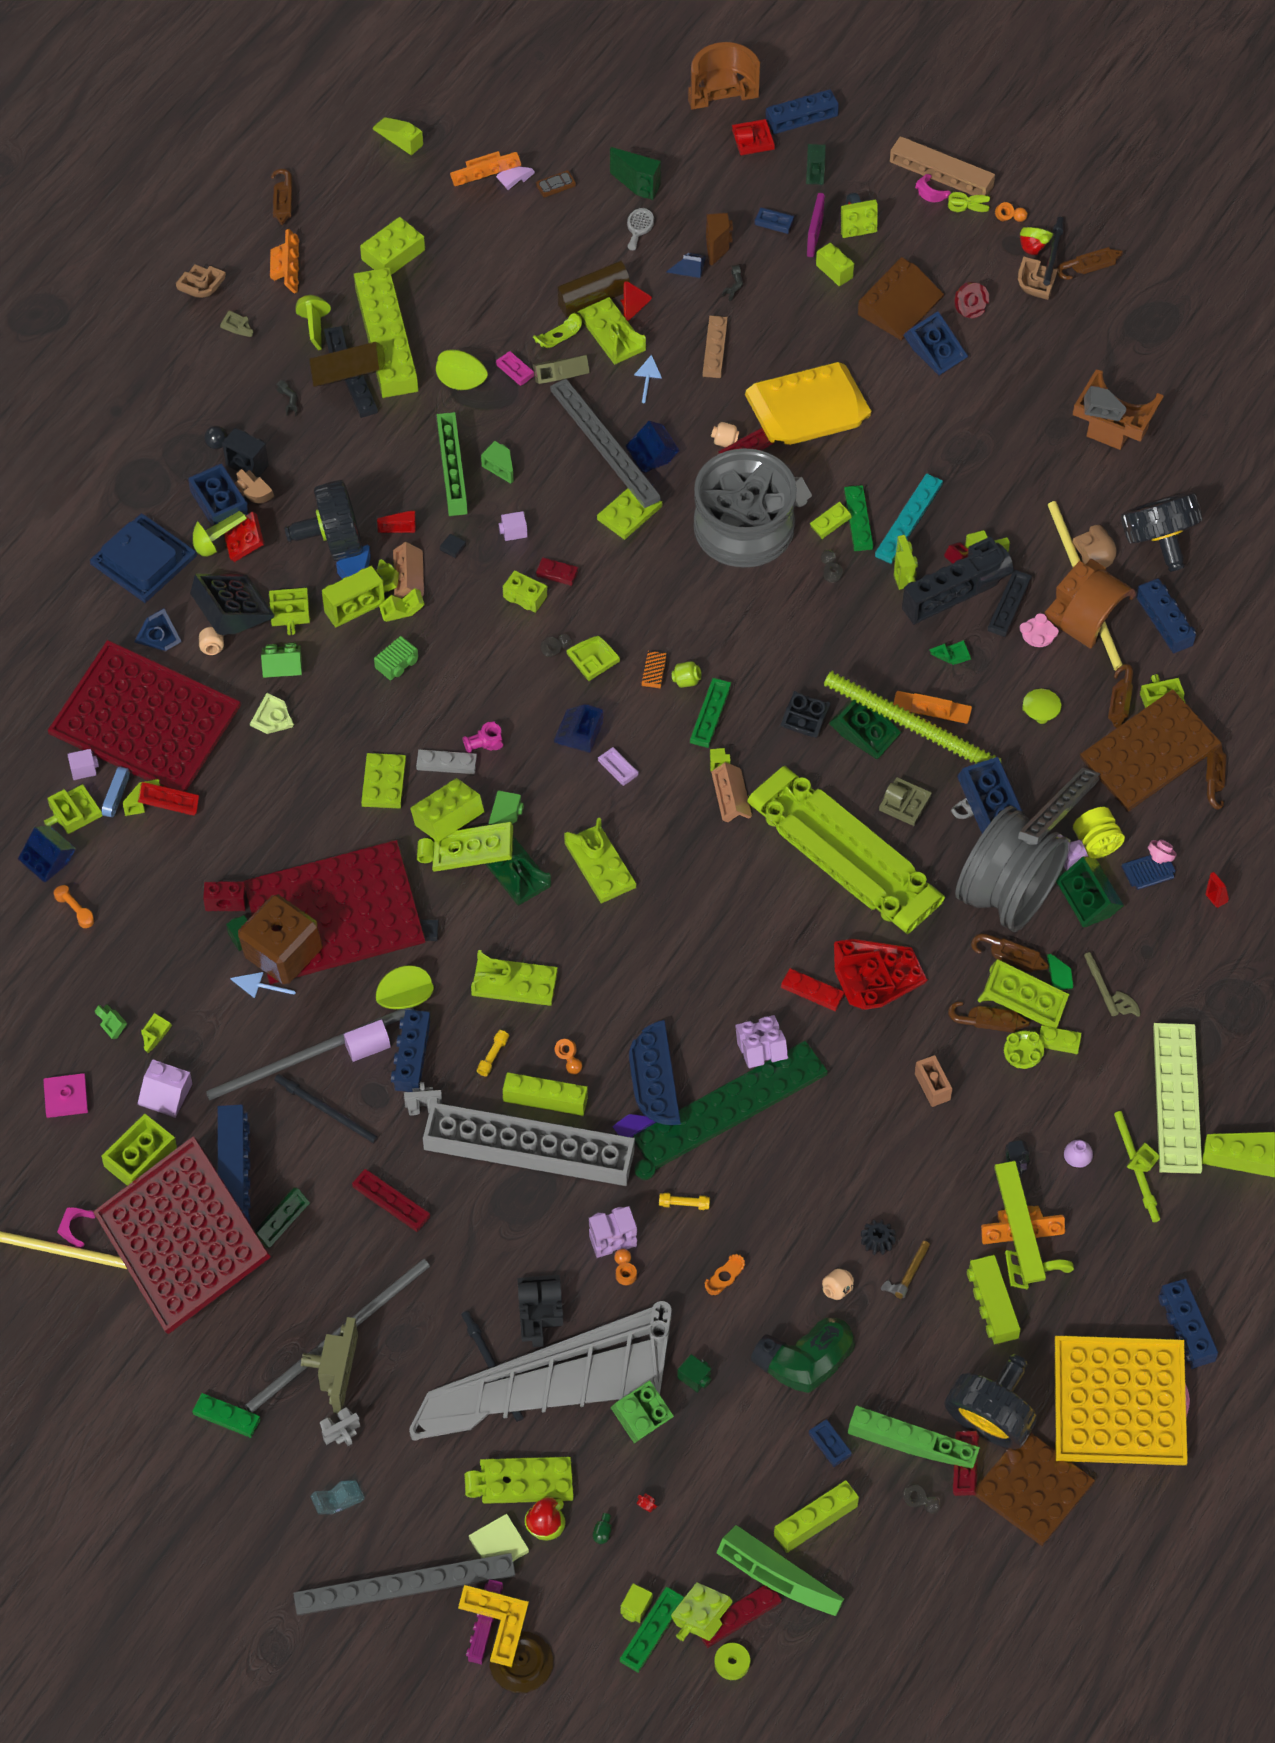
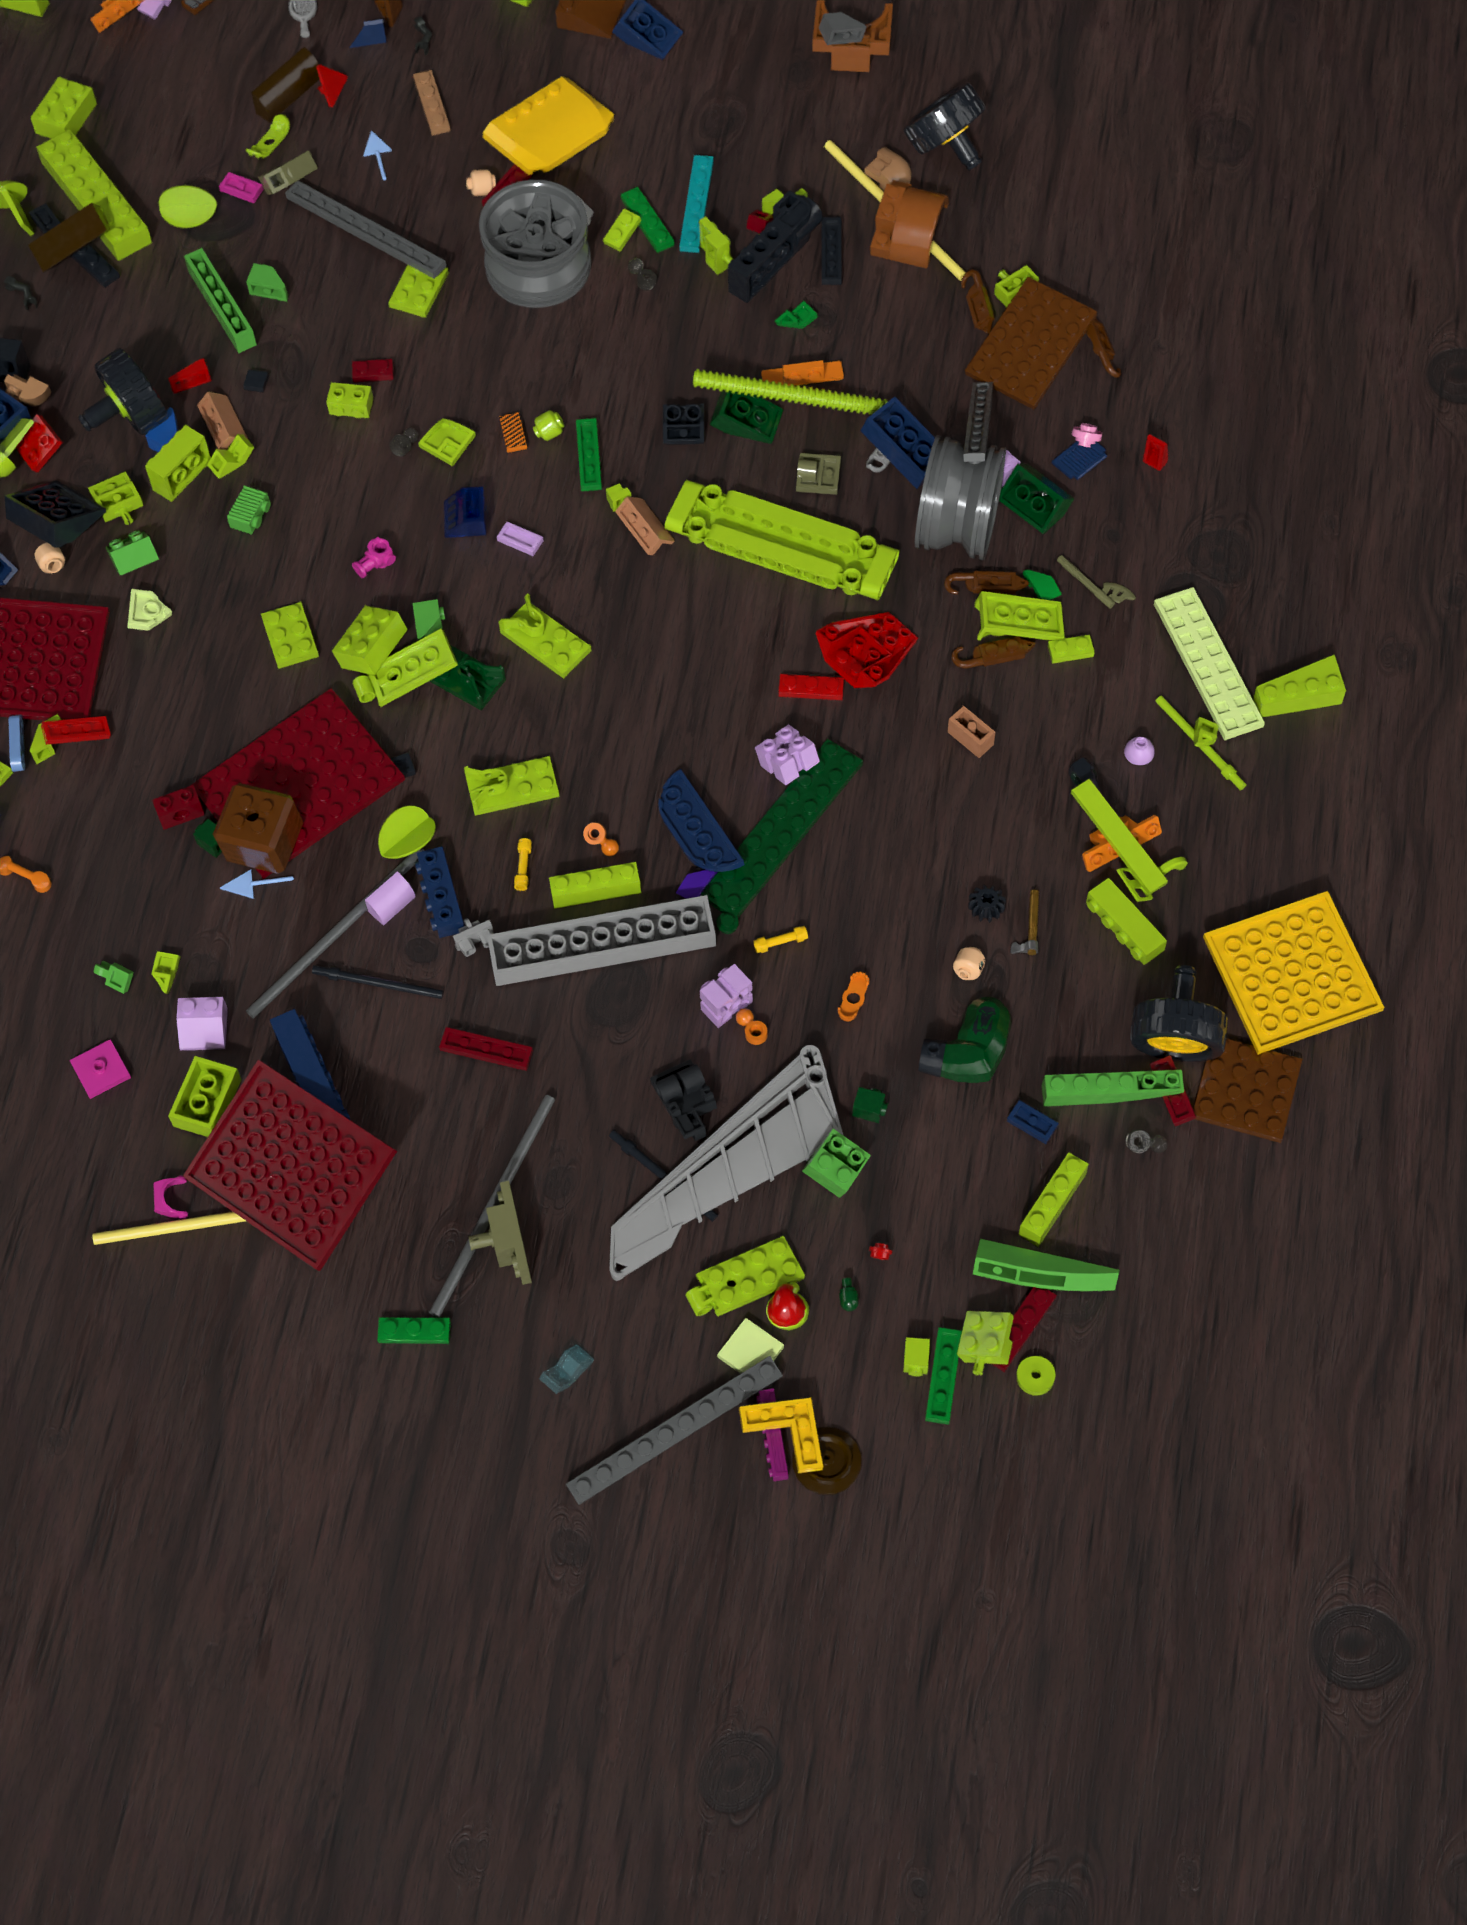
camera: 20 degrees left, 5 degrees up
(282, 1217) = (383, 1105): dark green plate -> none
(342, 1430) = (543, 1297): light grey hips -> none
(388, 575) = (205, 429): lime slope -> none
(446, 761) = (345, 594): light grey plate -> none
(513, 526) = (309, 340): lavender brick -> none
(612, 331) = (323, 120): lime plate -> none
(652, 447) = (414, 218): clear blue slope -> none
(1024, 1049) = (1042, 670): lime dish -> none
(1038, 631) = (871, 268): bright pink piece -> none
(1041, 705) = (906, 337): lime dish -> none
(1098, 832) = (1020, 436): neon yellow wheel -> none
(1166, 615) = (985, 212): dark blue brick -> none
(1188, 1323) = (1319, 873): dark blue brick -> none

